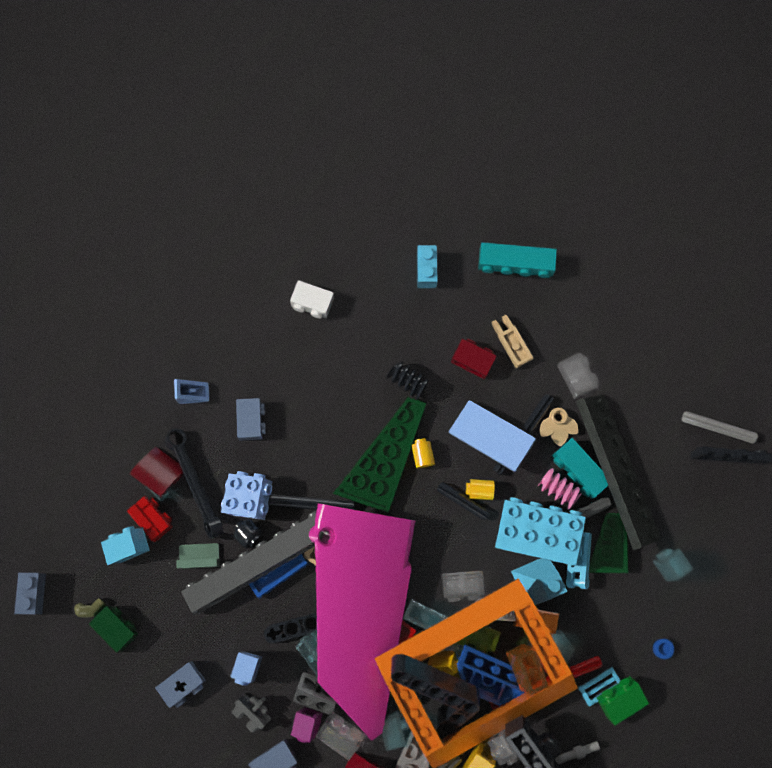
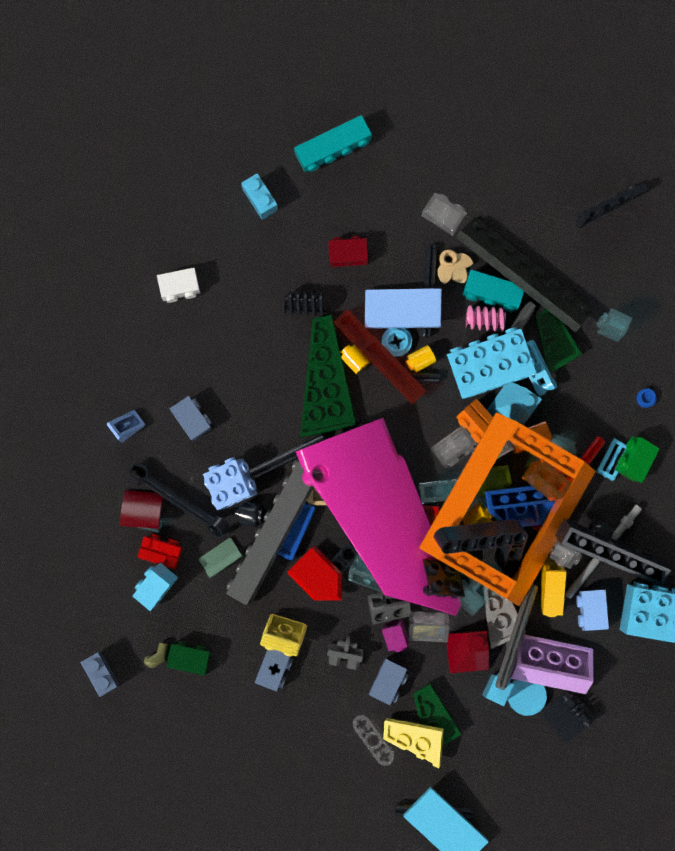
camera: 30 degrees left, 5 degrees up
(207, 660) = (283, 635): none -> light yellow brick
(246, 668) = (318, 621): light blue brick -> none
(271, 626) = (318, 576): none -> red tile
(377, 701) = (442, 580): none -> black hinge
(445, 465) = (379, 356): none -> clear red slope
(477, 457) = (400, 333): none -> medium azure gear
(496, 573) = (475, 419): none -> orange brick
(513, 342) = (372, 218): tan hinge -> none
(719, 427) = (587, 186): light grey axle -> none

